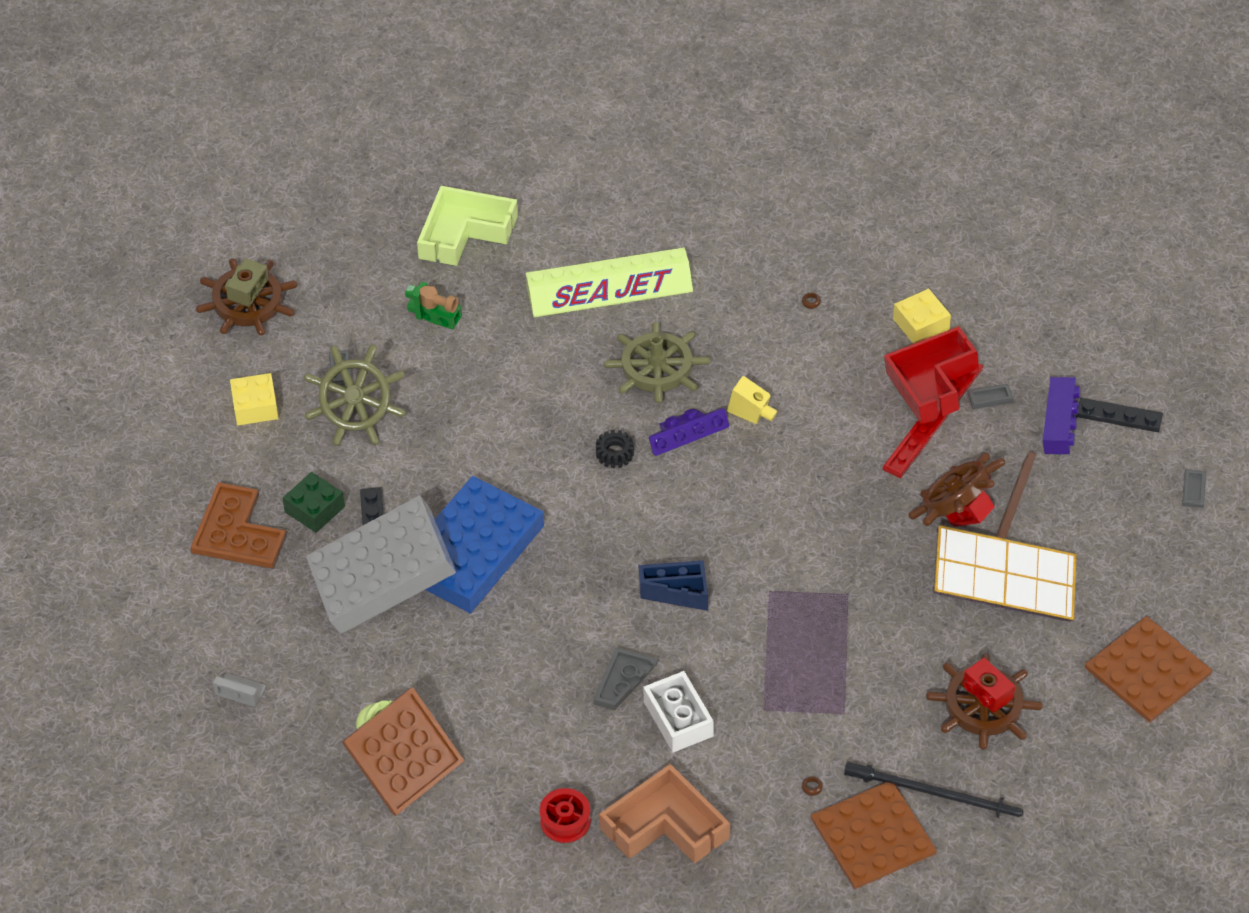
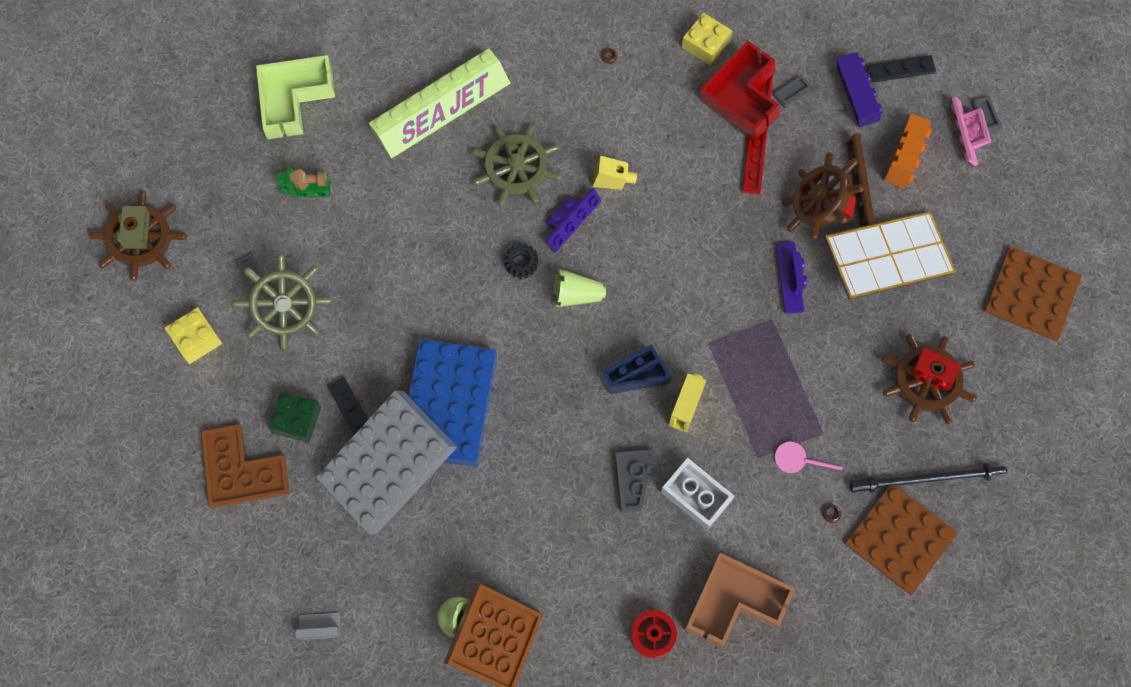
camera: 25 degrees left, 20 degrees up
(656, 491) = (576, 289): none -> yellowish green cone
(712, 627) = (687, 402): none -> light yellow brick
(799, 721) = (792, 457): none -> bright pink piece
(889, 561) = (791, 277): none -> dark purple bracket
(1081, 489) = (908, 150): none -> orange wedge
(1165, 494) = (973, 129): none -> bright pink bracket

